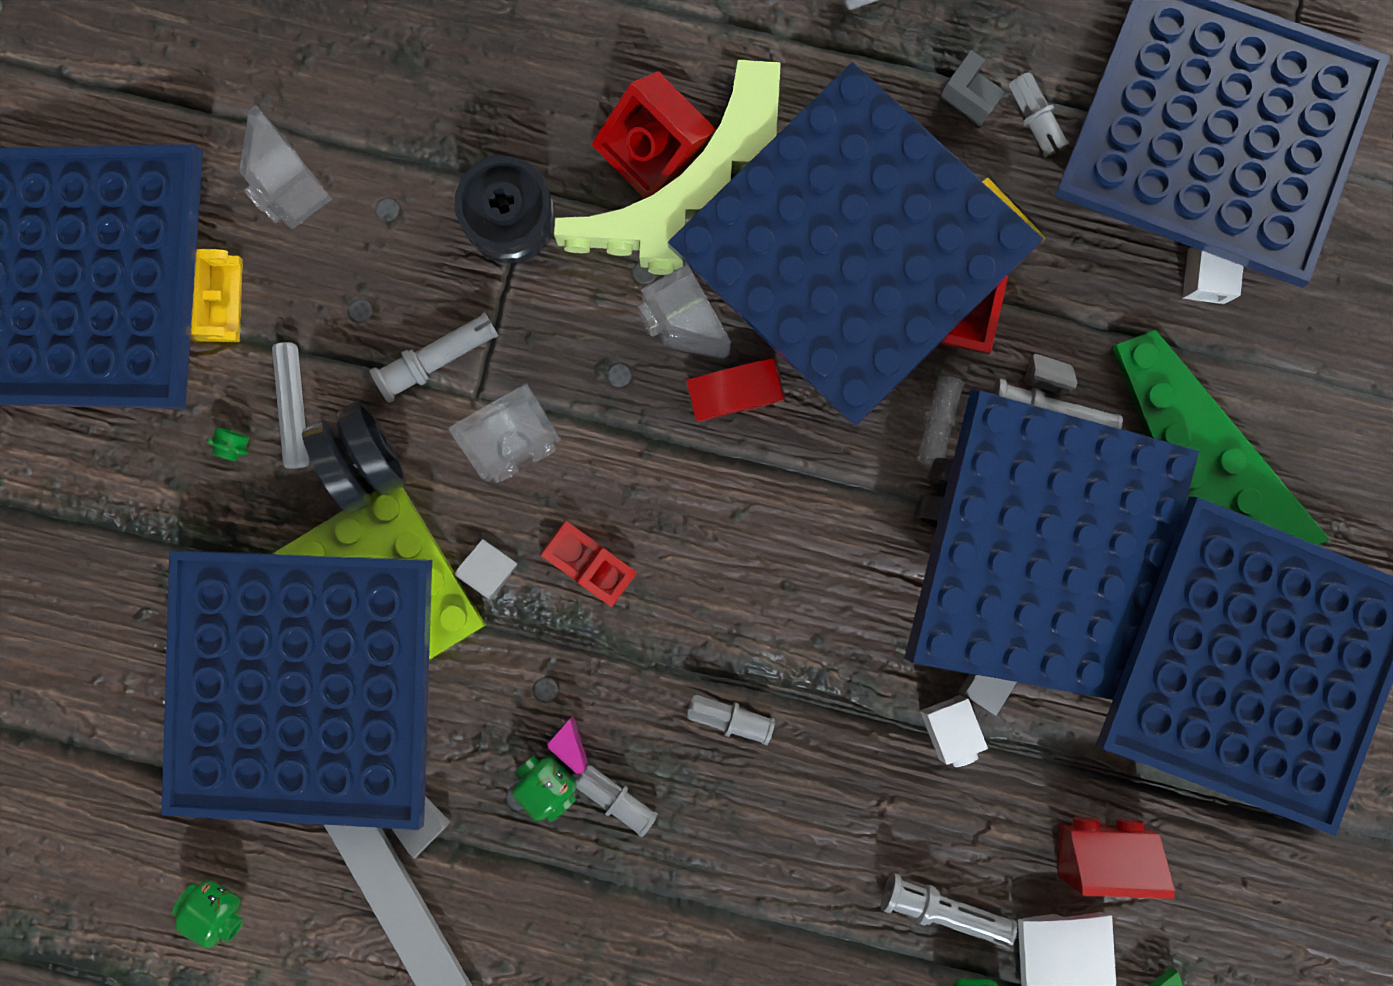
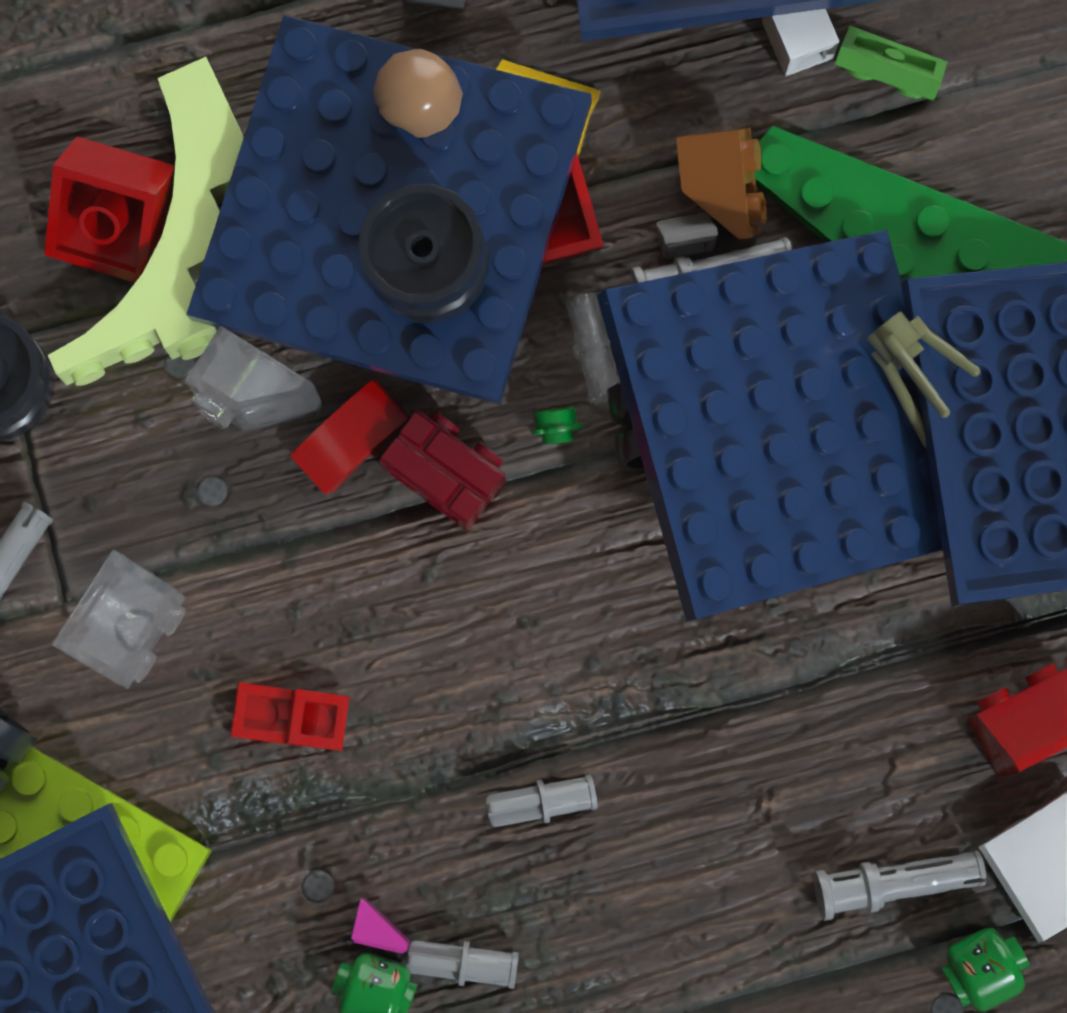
camera: 25 degrees left, 5 degrees down
(486, 569) = (178, 785): light grey slope -> none
(788, 448) = (444, 468): none -> dark red brick
(870, 265) = (419, 221): none -> black wheel
(884, 460) = (556, 425): none -> green plate
(919, 170) = (417, 92): none -> medium nougat hair
(954, 731) = (794, 678): white brick -> none
(987, 691) = (807, 612): light grey slope -> none
(1098, 348) = (721, 179): none -> dark orange slope
(1166, 542) = (897, 346): none -> olive plant
(1274, 340) = (881, 59): none -> bright green plate

